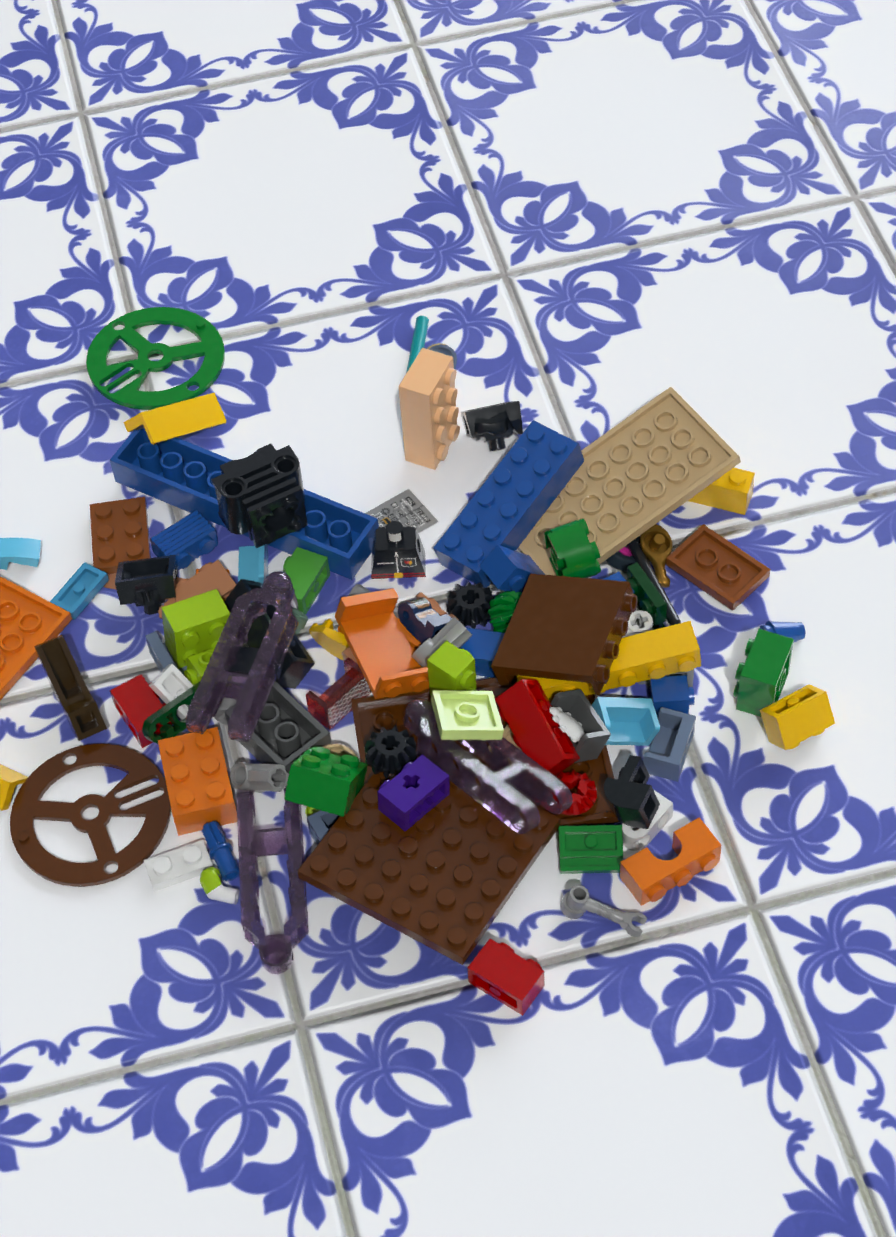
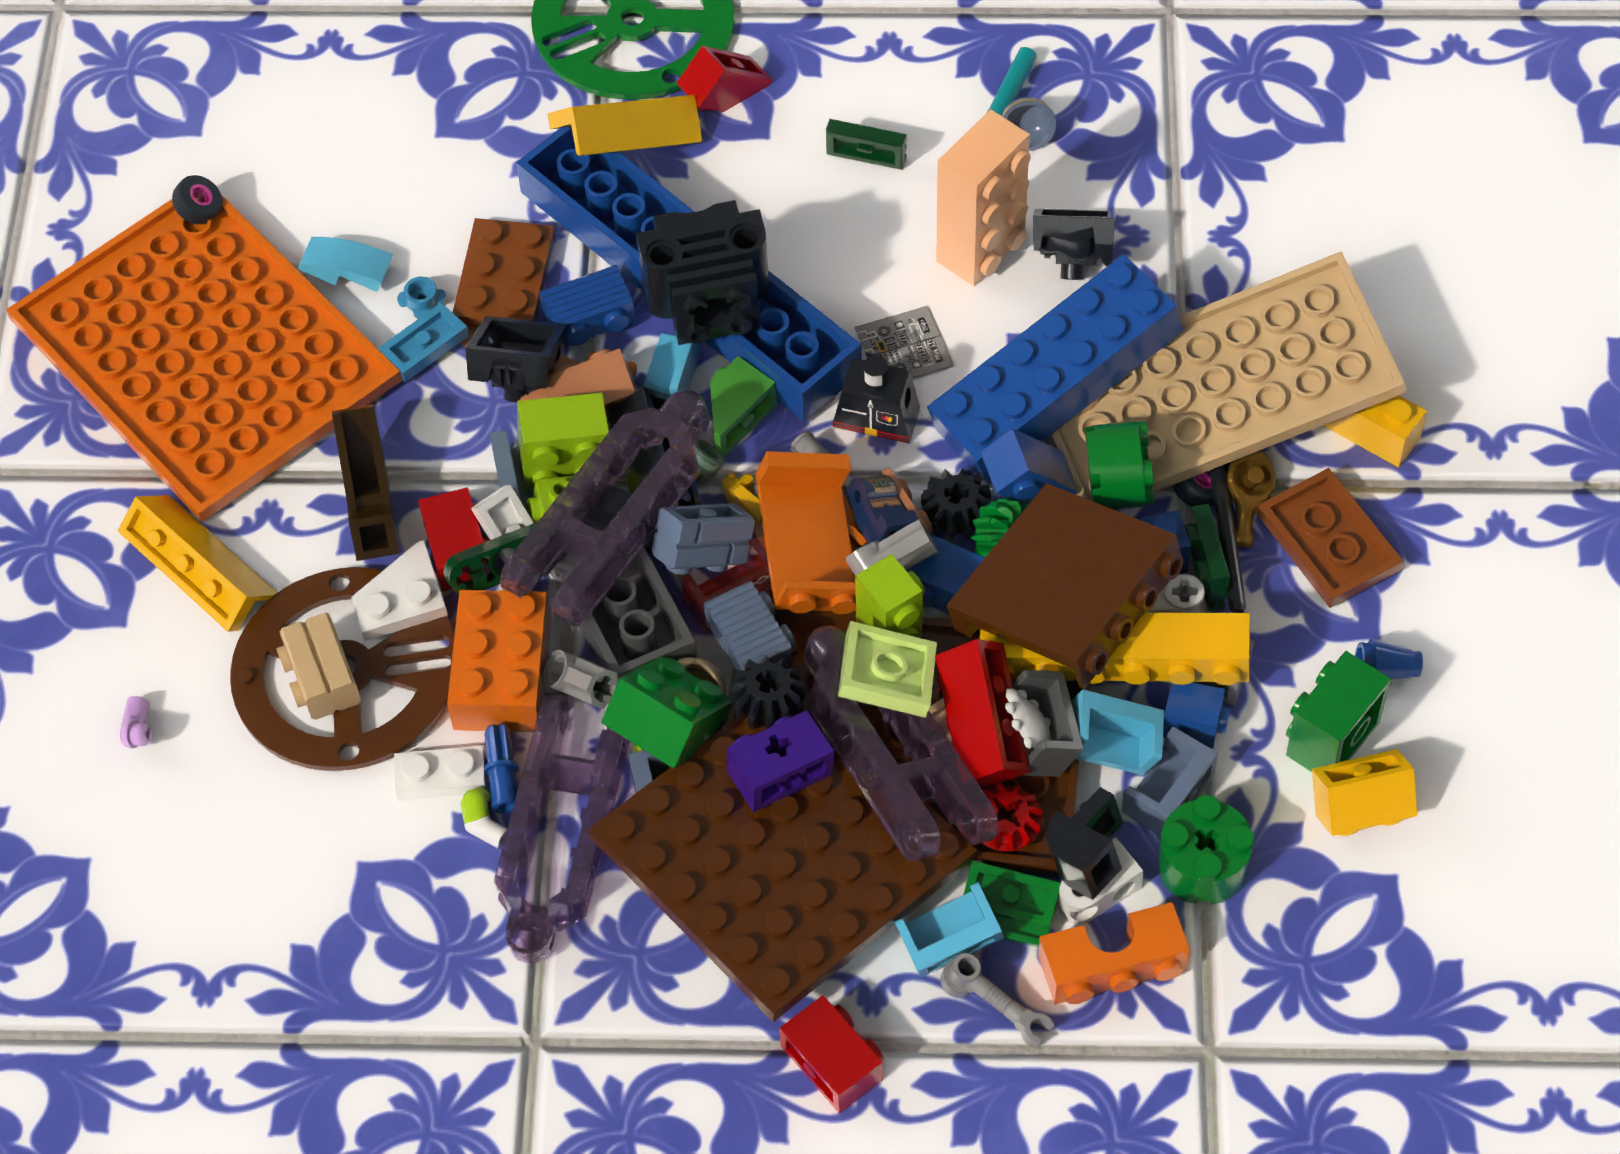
camera: 15 degrees right, 5 degrees up
(68, 562) = (418, 288): none -> dark azure plate
(75, 816) = (319, 665): none -> tan brick
(115, 756) = (400, 596): none -> white wing
(228, 379) = (722, 79): none -> red slope
(312, 665) = (702, 537): none -> sand blue brick
(336, 397) = (866, 144): none -> dark green tile
(360, 715) = (746, 627): none -> sand blue brick
(559, 875) = (950, 930): none -> medium azure panel
(707, 780) = (1205, 851): none -> green brick

